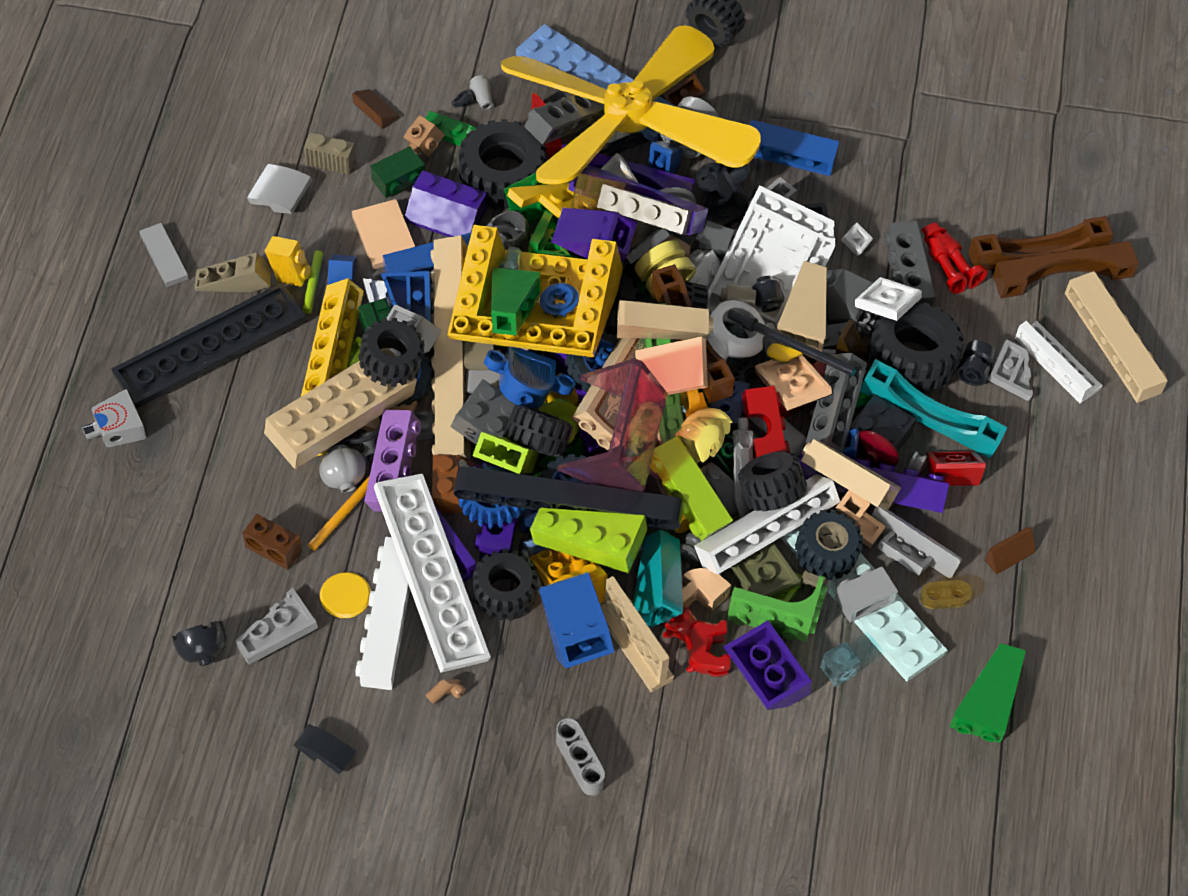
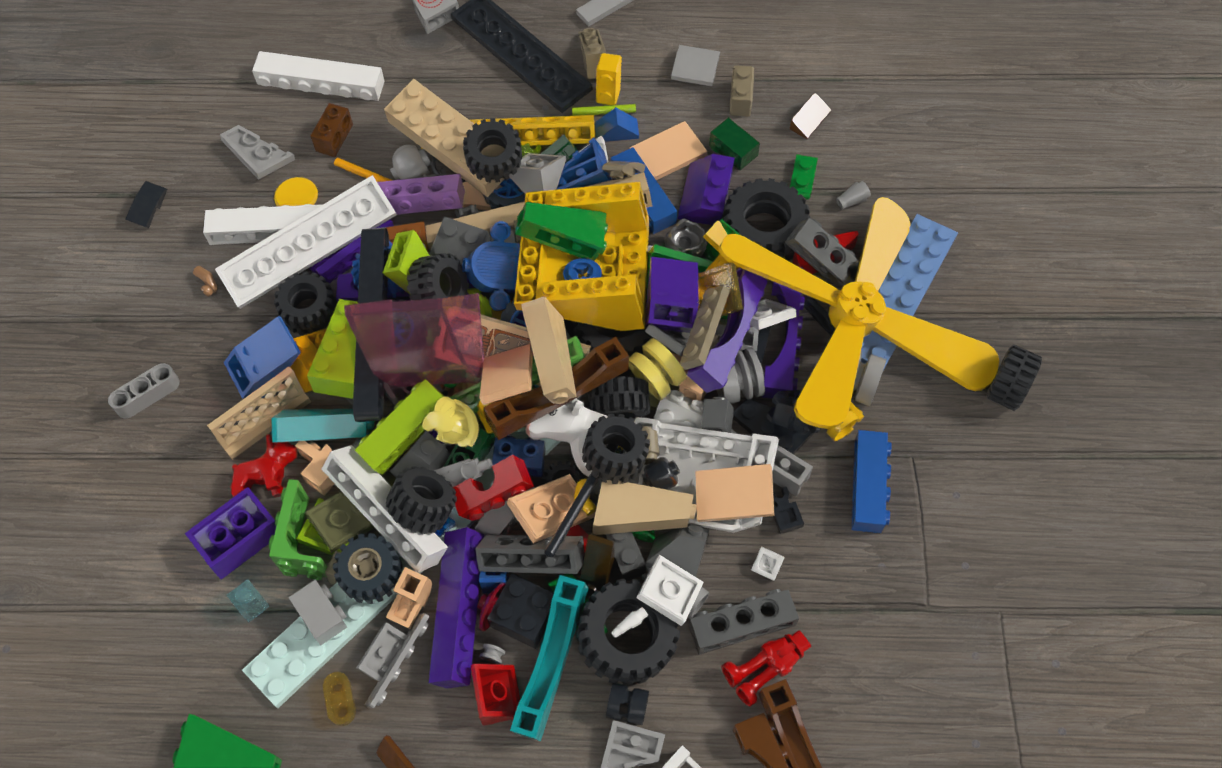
camera: 85 degrees right, 5 degrees up
(184, 552) = (318, 76): none -> white brick
(201, 643) = (231, 101): black cylinder -> none
(423, 136) = (780, 155): medium nougat brick -> none
(424, 256) = (618, 169): none -> dark tan slope
(462, 98) = (842, 182): black piece -> none
(512, 259) = (619, 232): clear light blue cone -> none
(664, 156) = (810, 356): blue slope -> none
(686, 88) = (912, 370): reddish brown slope -> none
(755, 304) = (621, 433): none -> black tyre
(803, 231) = (734, 493): none -> light nougat tile
(850, 474) = (440, 576): tan slope -> none
(916, 330) = (631, 621): none -> white piece

